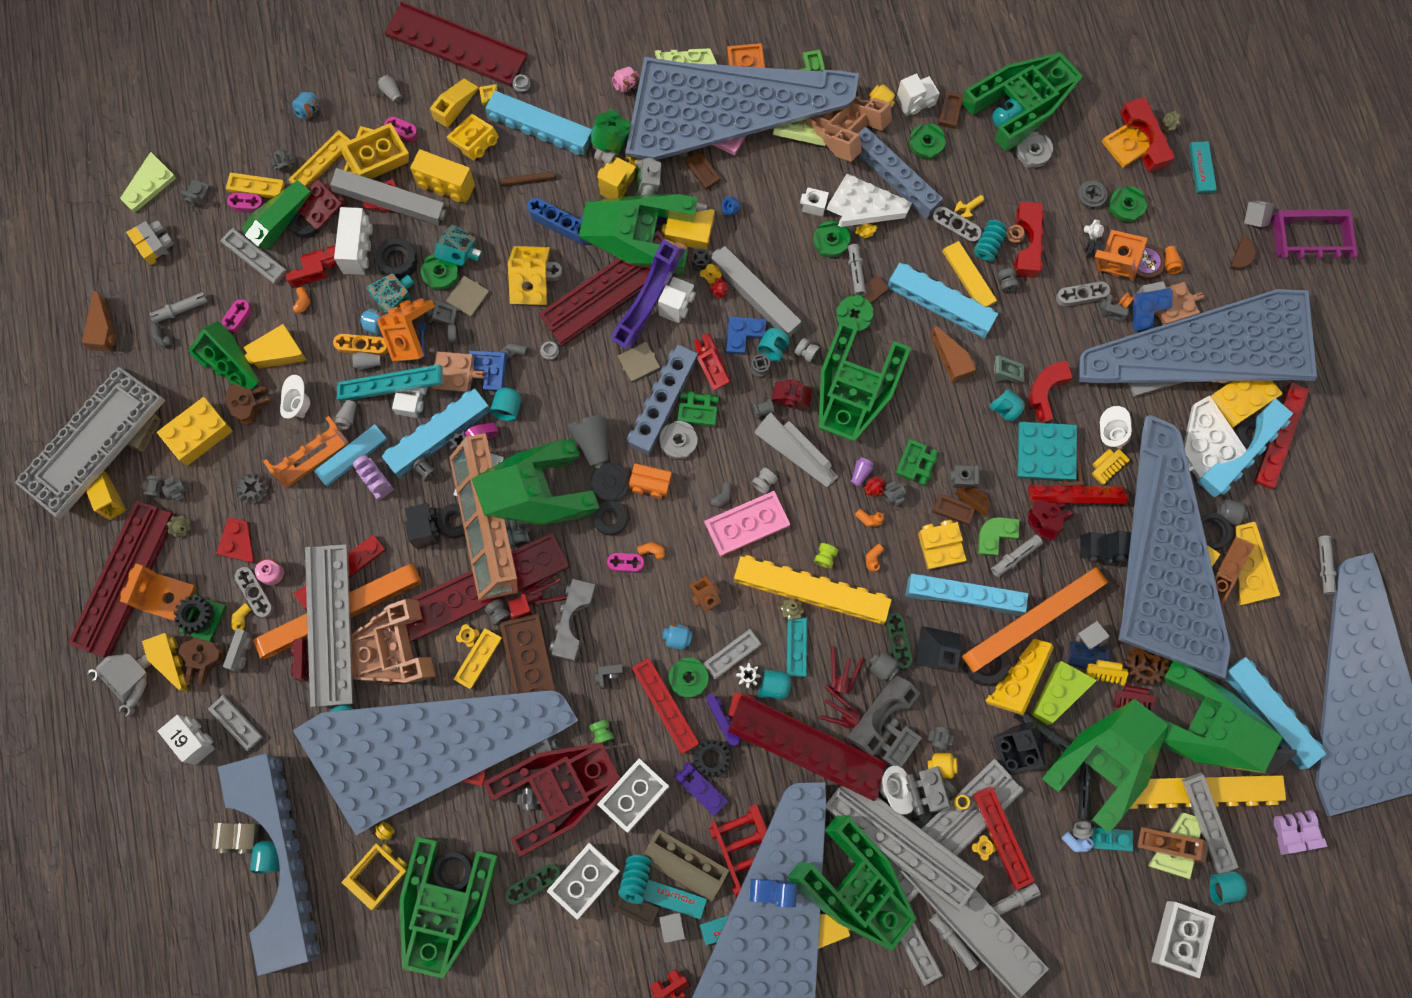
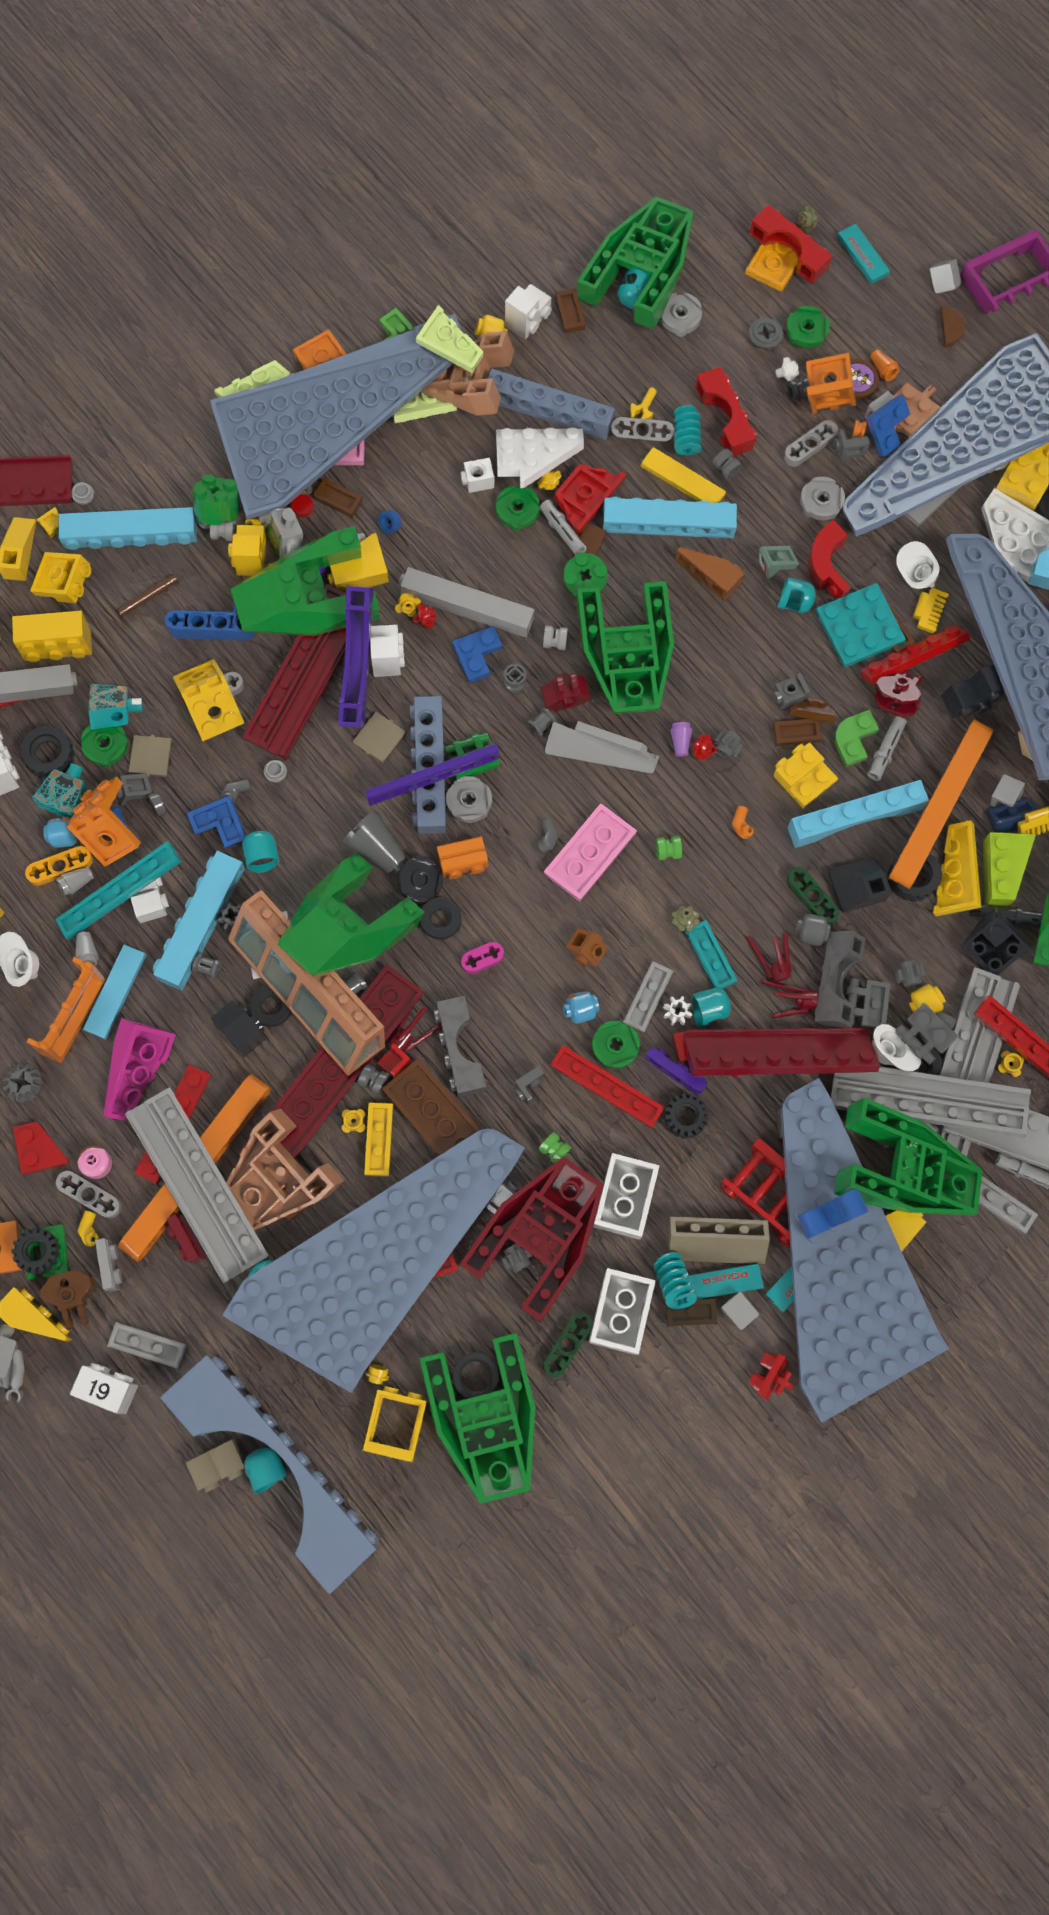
camera: 30 degrees left, 0 degrees up
(337, 512) = (134, 1060): none -> dark pink wedge
(372, 477) = (151, 1000): lavender legs -> none
(457, 371) = (188, 841): nougat plate -> none
(490, 429) = (250, 890): dark pink beam -> none
(625, 80) = (199, 436): bright pink head -> none
(652, 547) = (502, 928): orange arm -> none
(658, 408) = (432, 774): none -> dark purple tile
(674, 164) = (302, 506): none -> red tile
(701, 789) = (691, 1154): dark purple plate -> none
(702, 256) = (386, 590): black wheel -> none
(711, 362) = (461, 699): red plate -> none
(764, 480) = (584, 798): light grey wheel -> none
(772, 337) = (515, 647): teal helmet -> none
(807, 549) = (668, 848): none -> bright green wheel
(812, 590) = (695, 888): yellow brick -> none
(826, 555) = (691, 845): lime wheel -> none
(842, 92) = (449, 342): none -> yellowish green wing
(870, 520) = (717, 785): orange arm -> none
(887, 251) = (585, 494): none -> red wing
(911, 460) = (726, 701): green plate -> none
(924, 150) = (563, 366): green plate -> none
(966, 801) = (970, 1023): yellow hinge -> none
(1018, 230) = (711, 407): nougat plate -> none
(1066, 350) = (822, 510): none -> light grey plate

